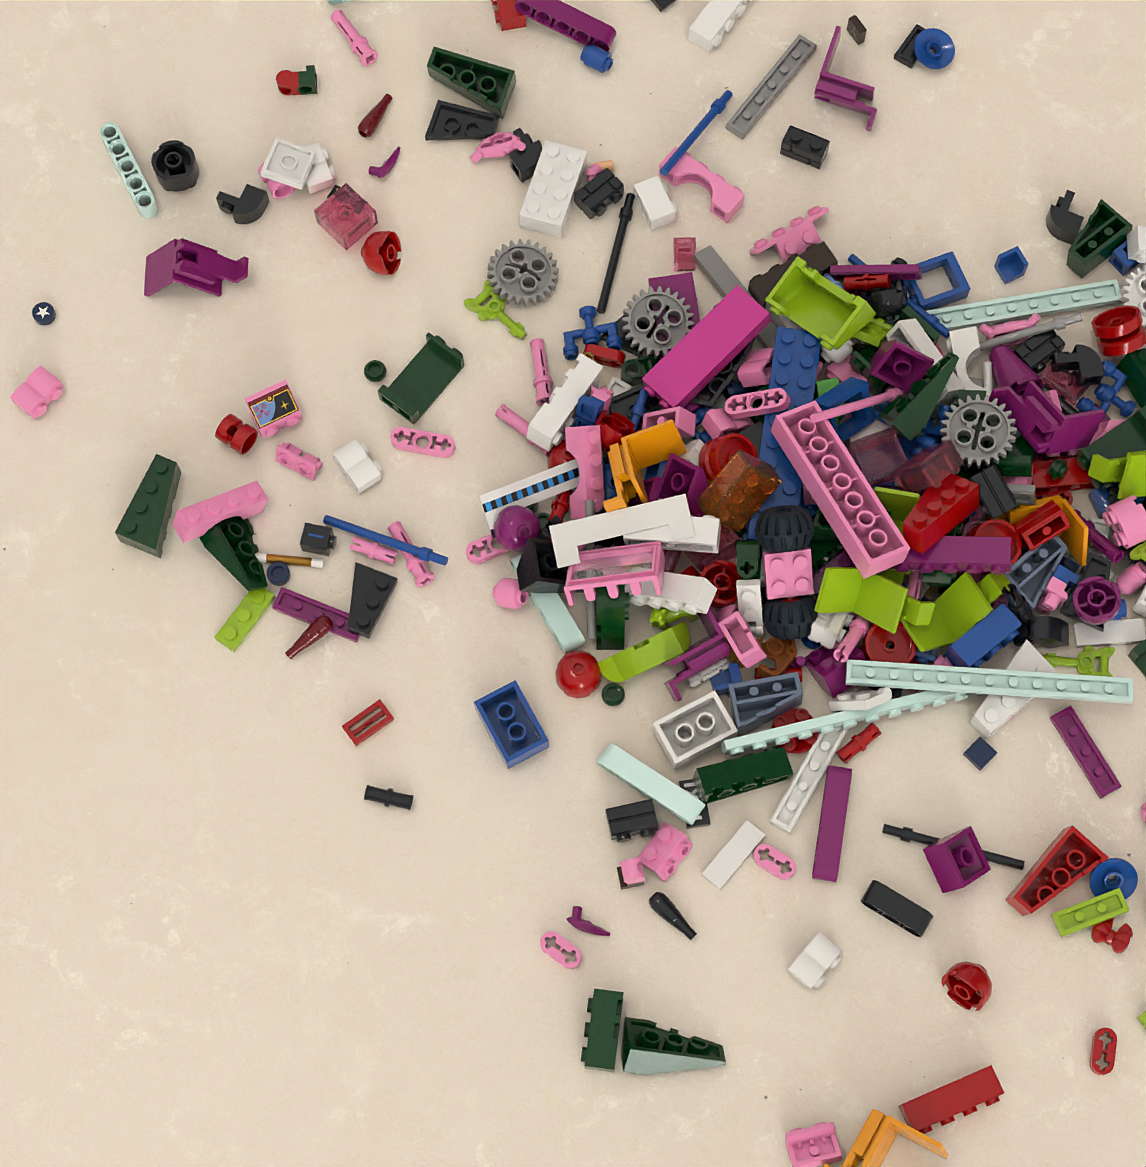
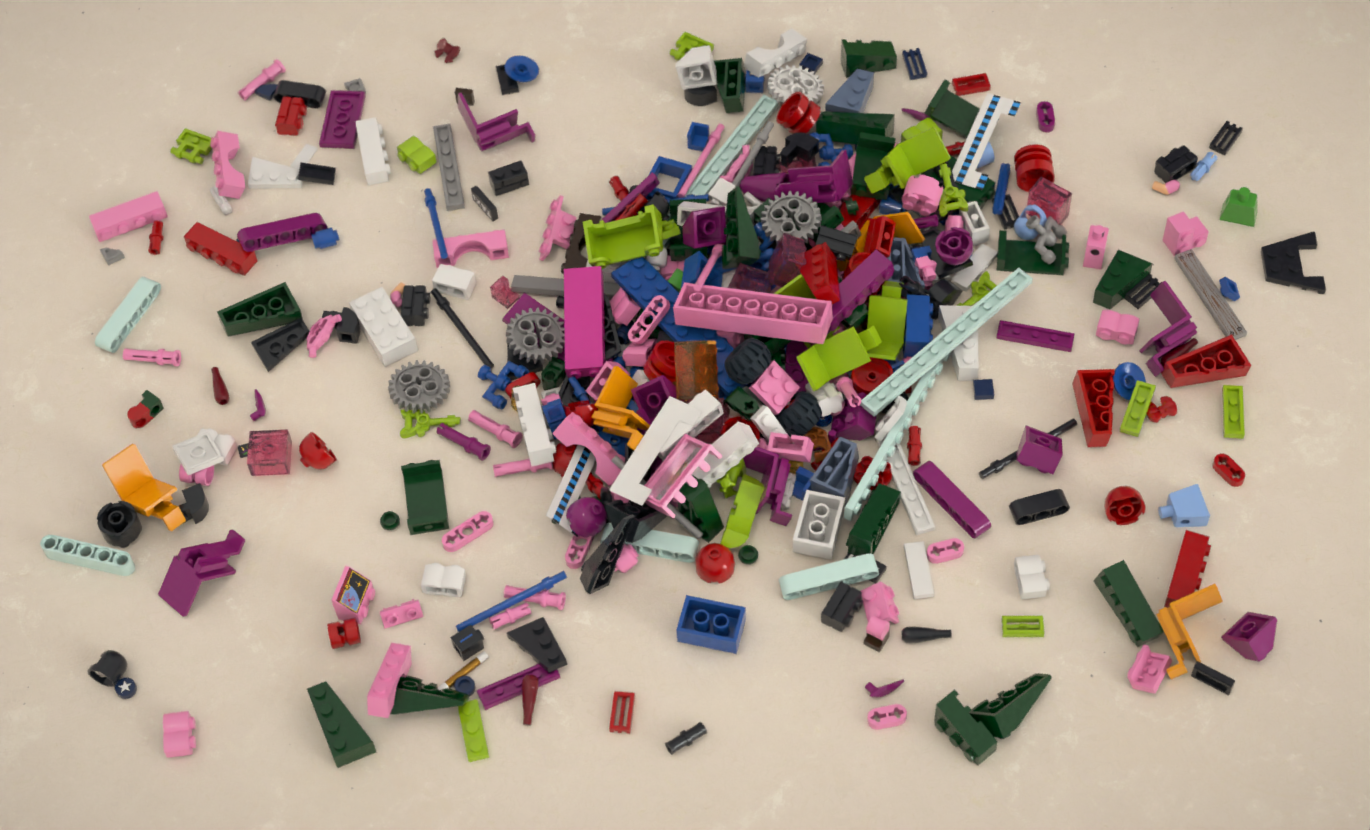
camera: 45 degrees left, 15 degrees down
(46, 285) = (111, 665): none -> black helmet
(217, 152) = (139, 488): none -> light orange piece
(484, 582) = (601, 564): none -> black wedge
(506, 367) = (470, 444): none -> magenta pin
(754, 49) = (416, 155): none -> lime brick
(759, 153) = (484, 203): none -> black tile
(767, 1016) = (1022, 629): none -> lime tile
(864, 1074) = (1128, 603): none -> dark green wedge
(887, 252) = (620, 190): none -> red pin
(1020, 1044) = (1186, 508): none -> light blue torso
(1024, 280) = (713, 139): none -> bright pink bar
(1075, 199) = (697, 68): none -> white slope
(1112, 169) = (686, 43): none -> lime plate

